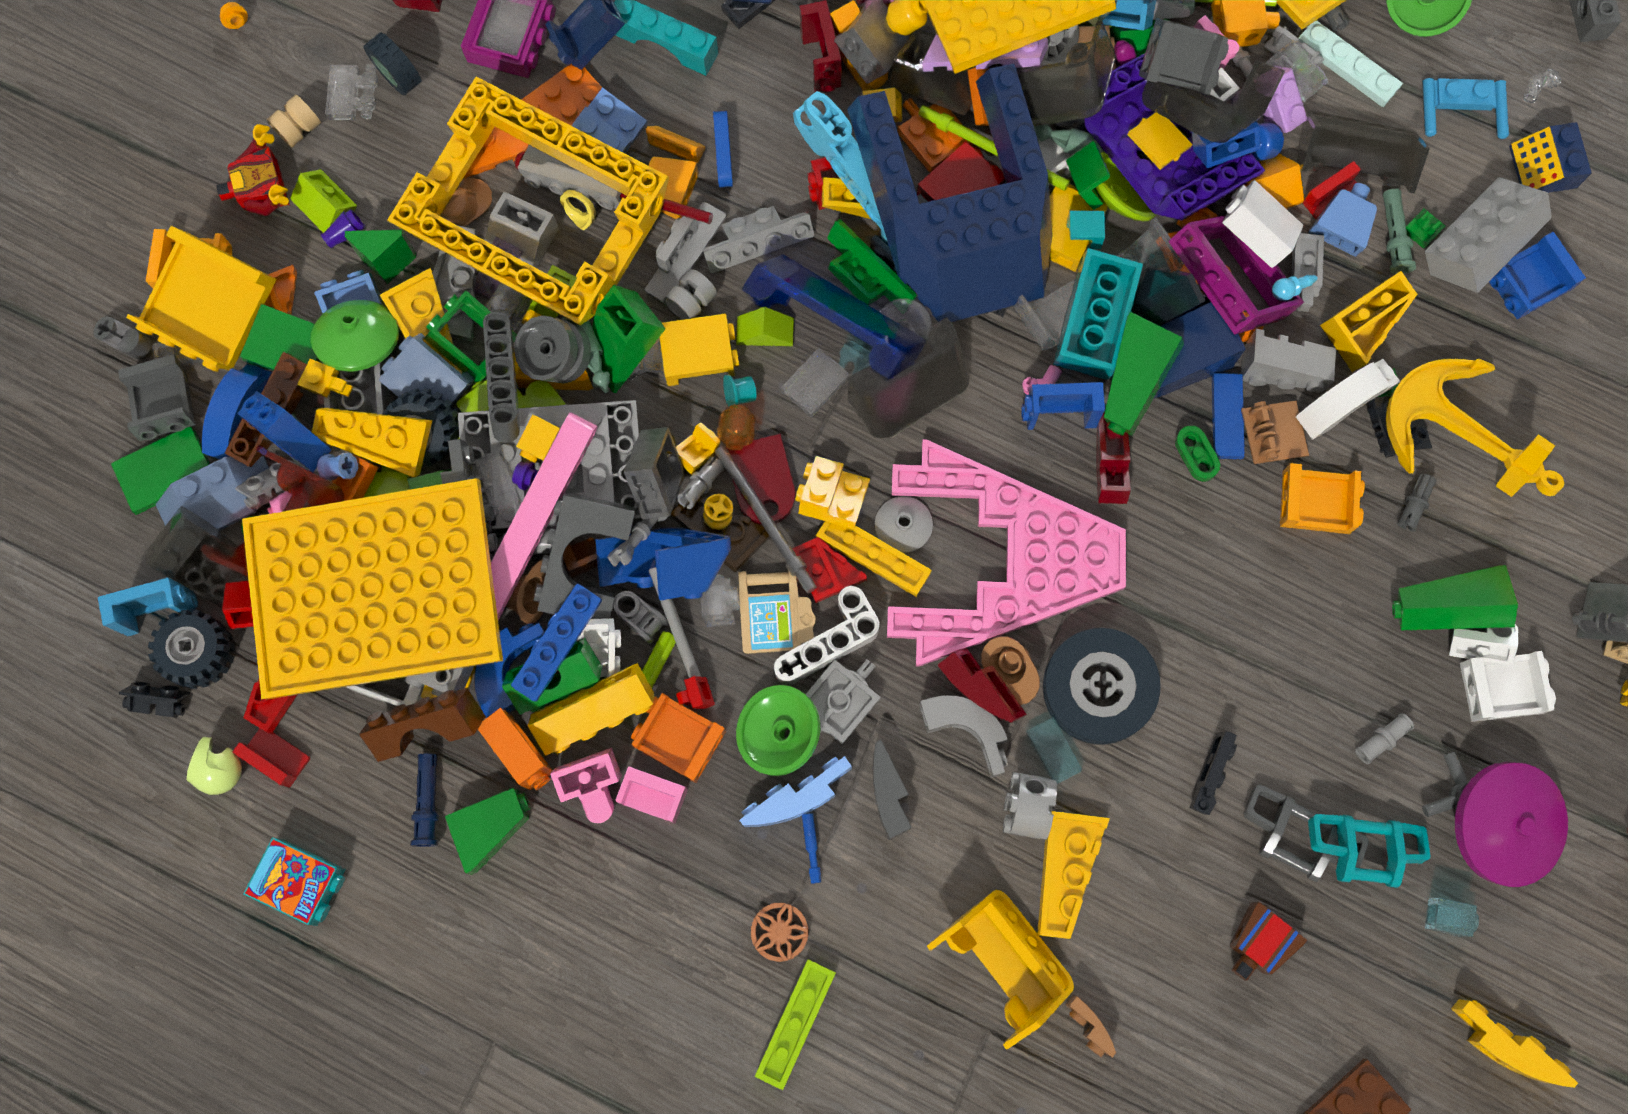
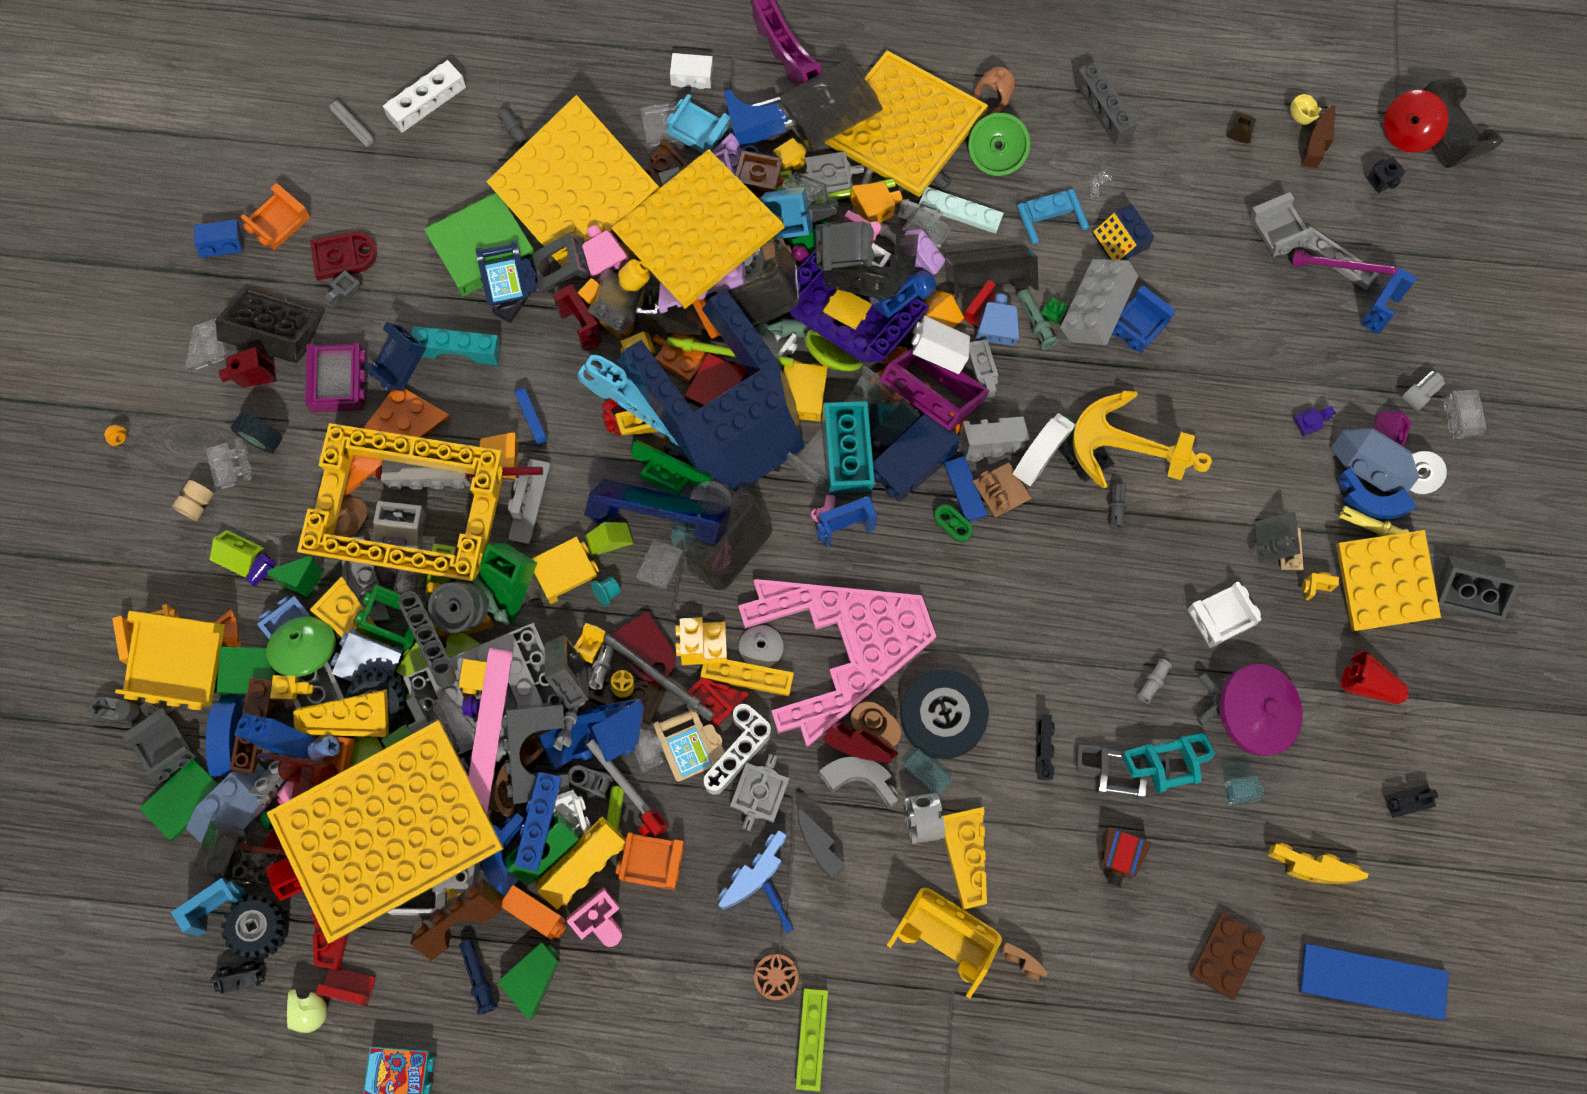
camera: 25 degrees left, 5 degrees down
(256, 177) = (178, 552): torso -> none
(581, 219) = (441, 502): light yellow piece -> none
(610, 121) = (439, 423): medium blue plate -> none
(651, 794) = (646, 910): bright pink panel -> none
(674, 143) = (492, 423): light orange slope -> none
(693, 292) = (544, 532): light grey wheel -> none
(736, 427) = (613, 617): clear orange head -> none
(756, 236) = (577, 472): light grey bracket -> none
(763, 728) = (711, 827): bright green dish -> none
(1087, 226) = (818, 387): teal panel -> none
(1088, 172) = (805, 348): green panel -> none
(1112, 465) = (895, 547): dark red slope -> none
(1139, 372) = (892, 479): green slope -> none
(1292, 286) = (976, 383): medium azure bar -> none
(1321, 500) = (1051, 527): light orange panel -> none
(1366, 322) = (1038, 389): yellow wedge -> none
(1459, 602) = (1170, 567): green slope -> none
(1495, 645) = (1205, 589): white plate -> none

